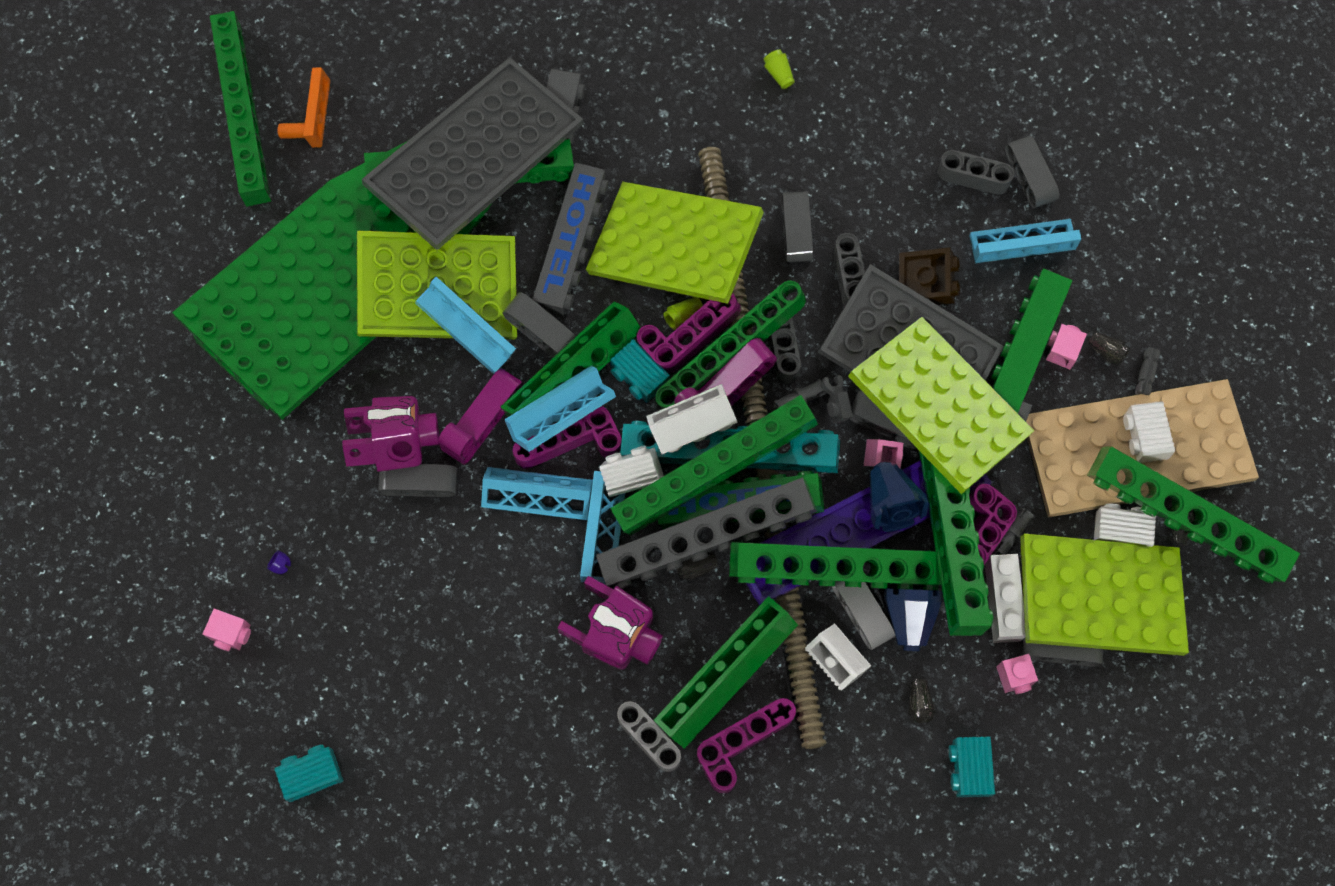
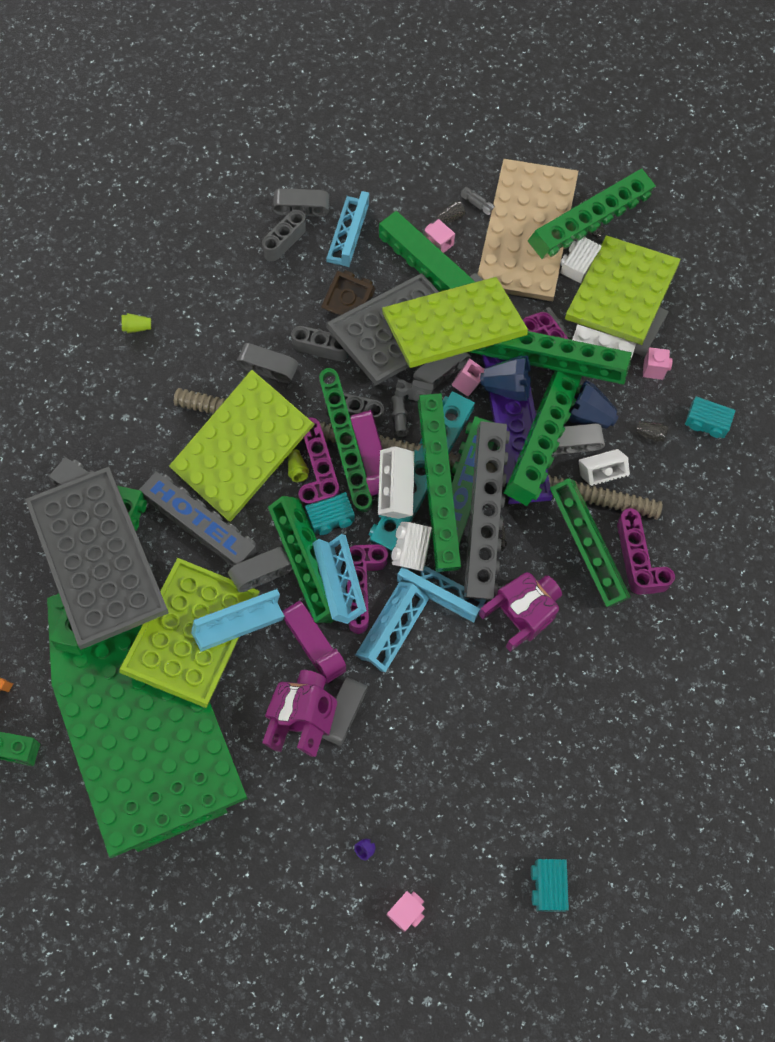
camera: 70 degrees left, 5 degrees down
(645, 723) = (620, 610): light grey beam -> none
(1149, 432) = (525, 212): white brick -> none

